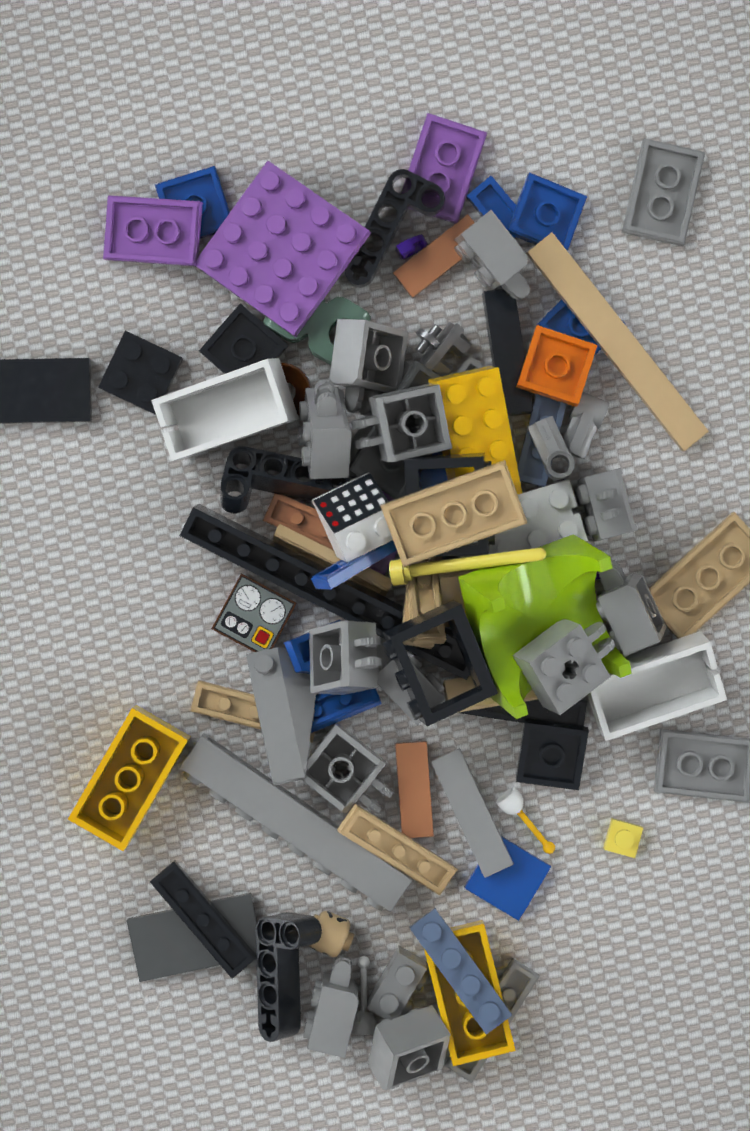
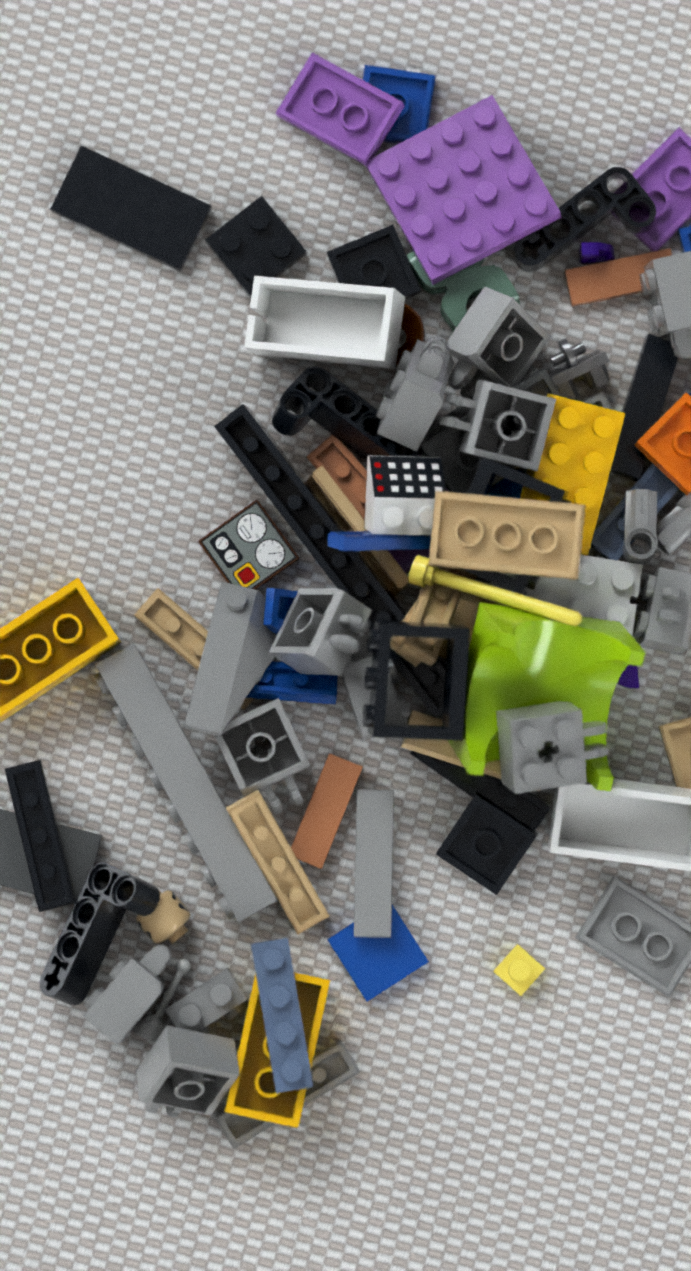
camera: 25 degrees right, 5 degrees down
(512, 803) = (421, 875): hinge -> none
(629, 610) = (640, 727): light grey hinge -> none

